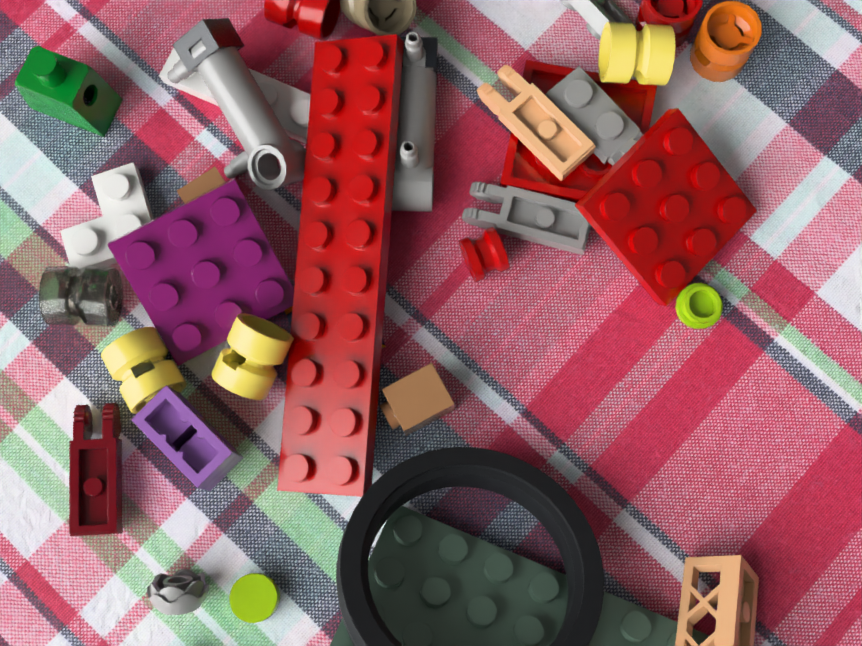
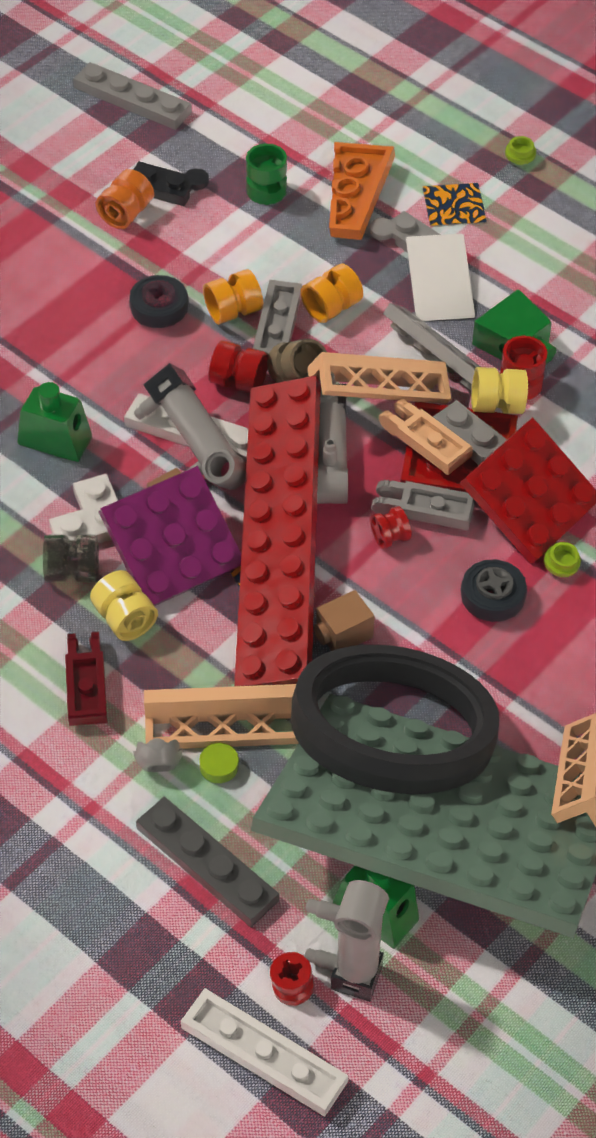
camera: 10 degrees left, 25 degrees down
(187, 438) = (163, 646): medium lavender brick -> none
(250, 361) = (211, 593): light yellow wheel -> none
(251, 519) = (216, 704): none -> light nougat fence
(485, 24) = (384, 372): none -> light nougat fence
(615, 338) = (504, 581): none -> black wheel
(725, 41) = (567, 387): orange wheel -> none

